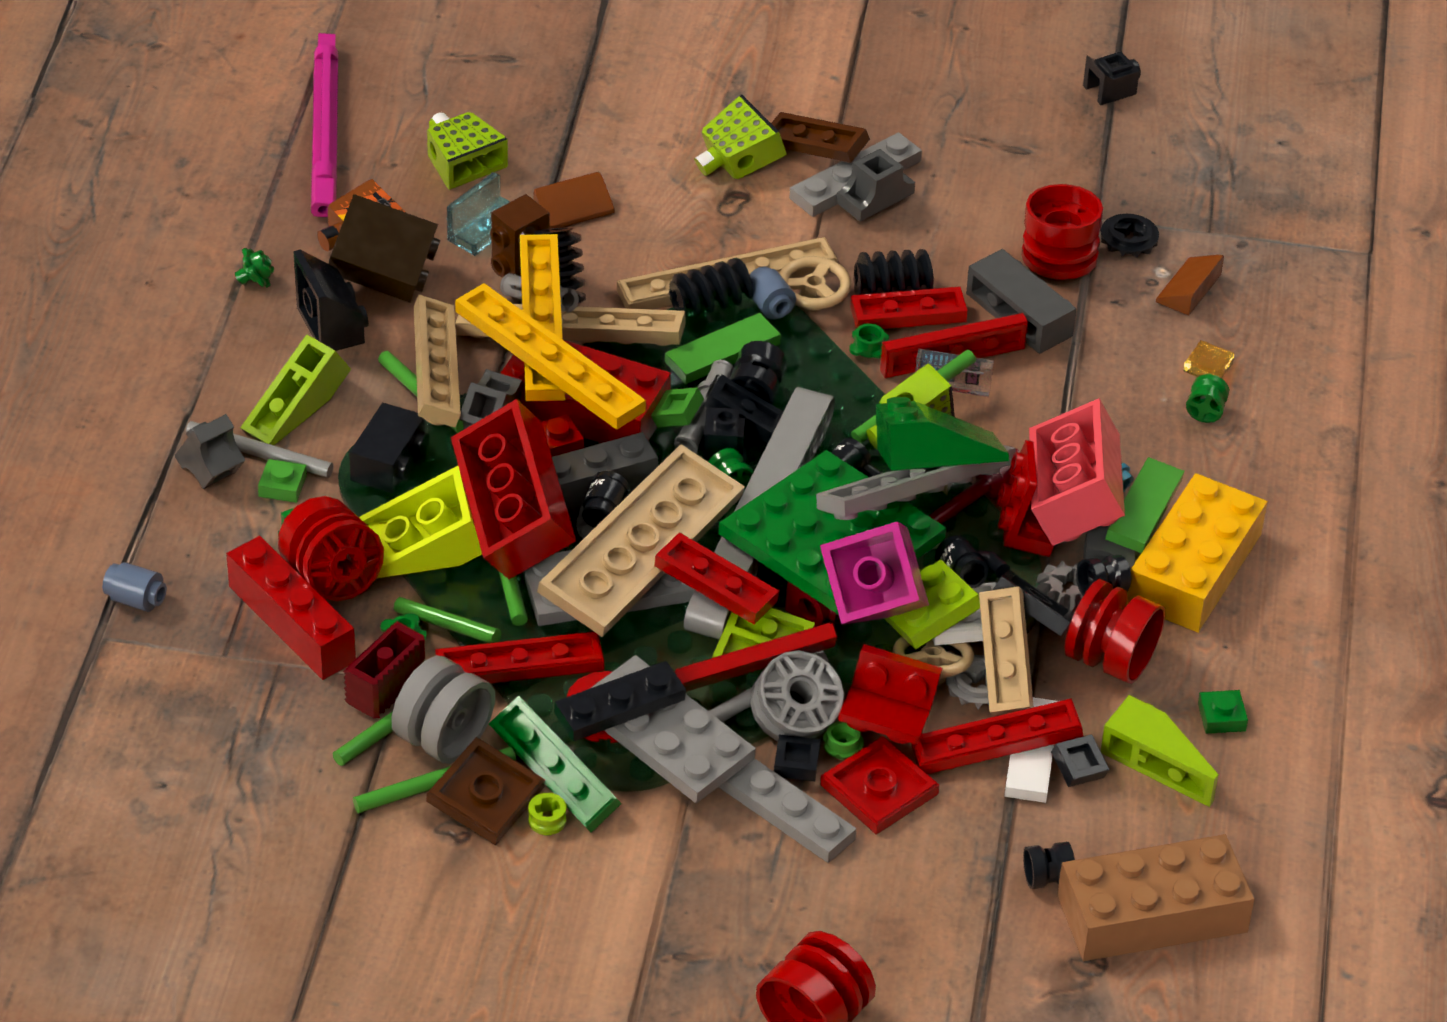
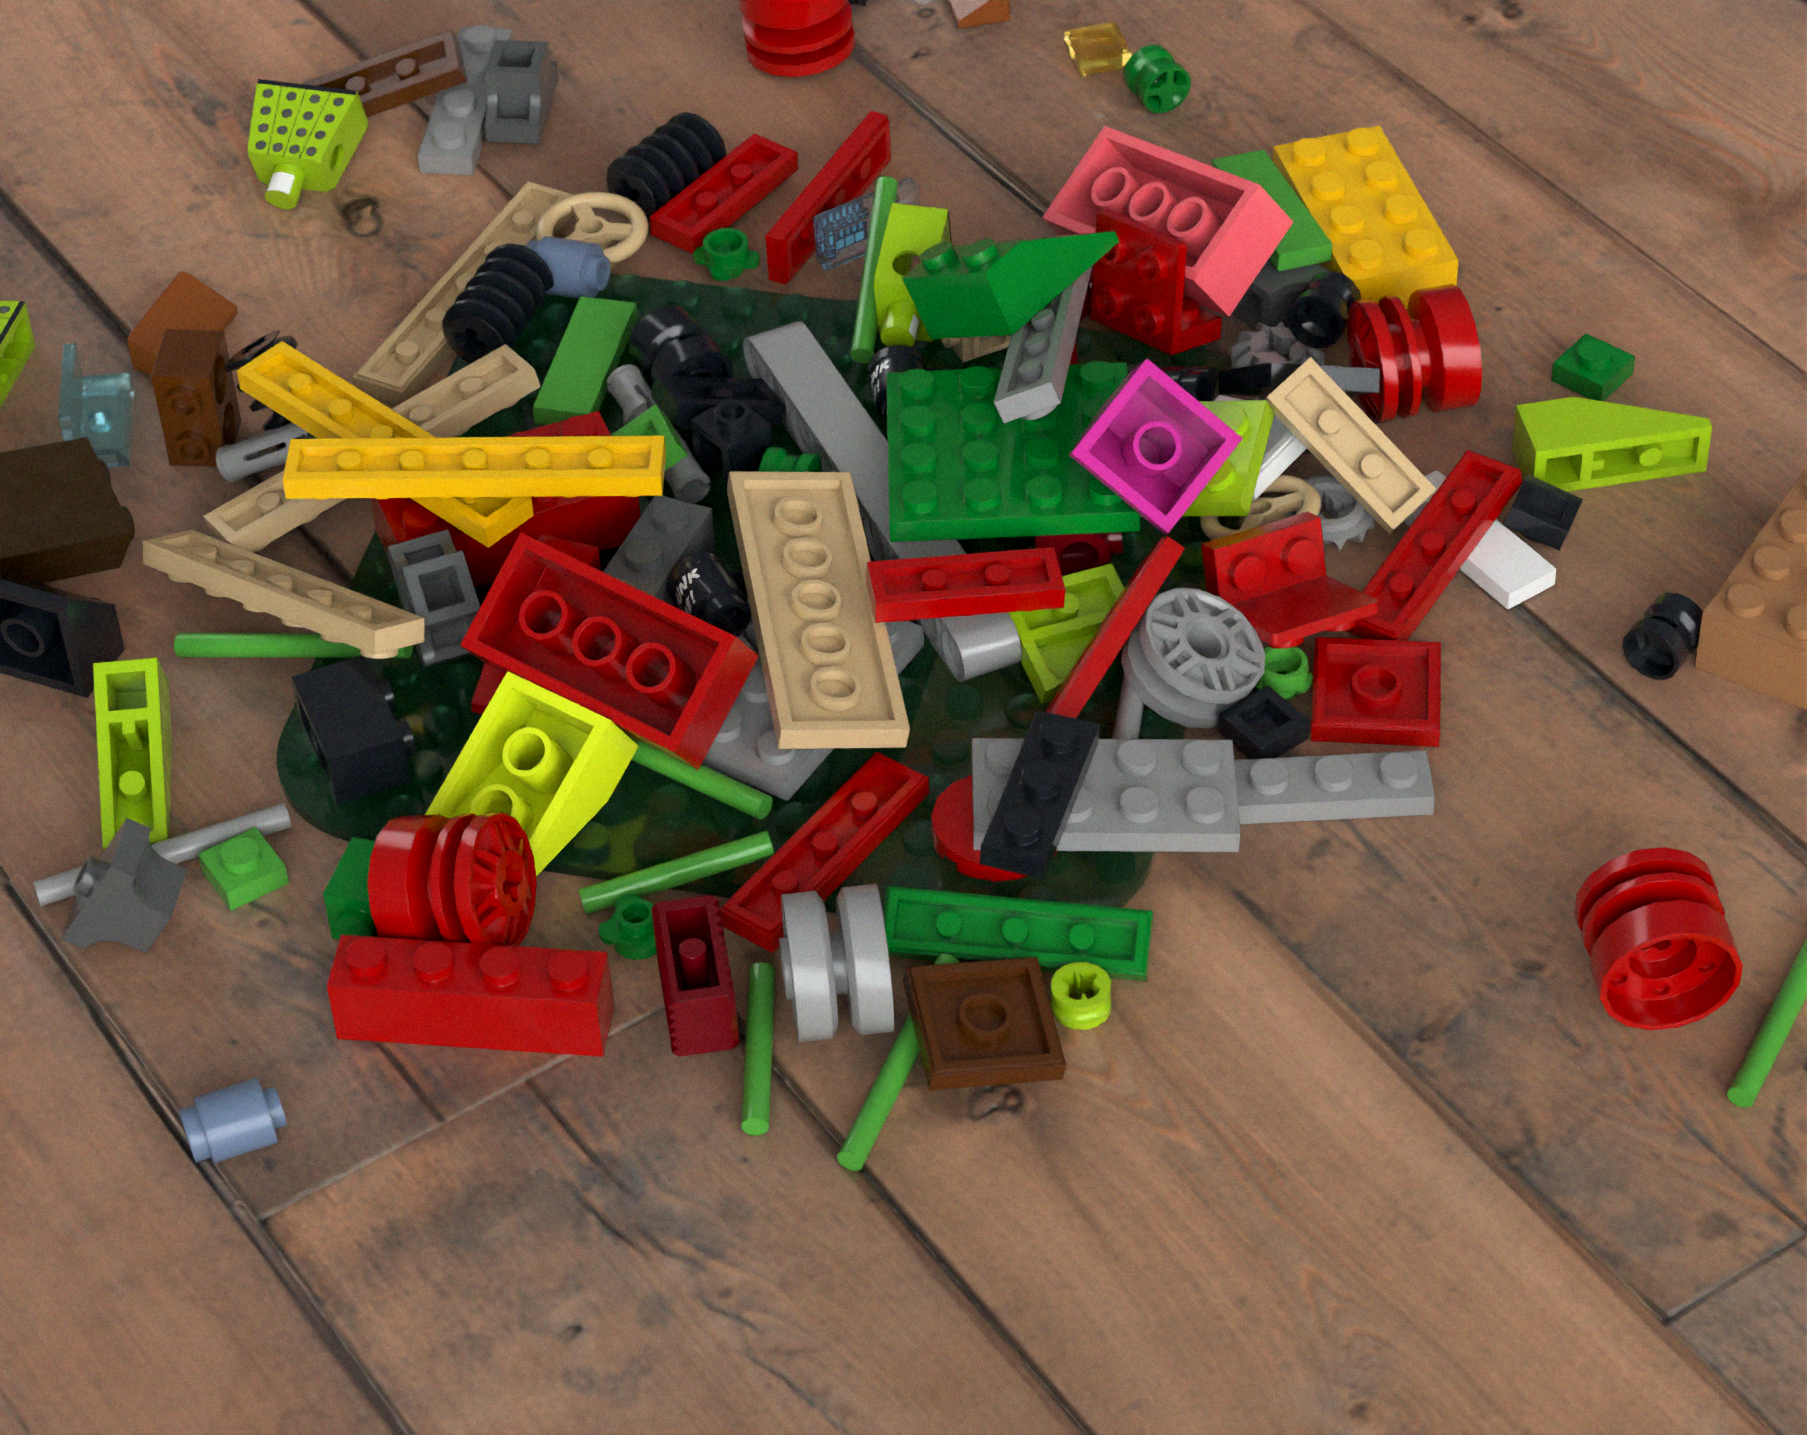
camera: 40 degrees left, 0 degrees up
(1009, 288) = (826, 103): dark grey brick -> none

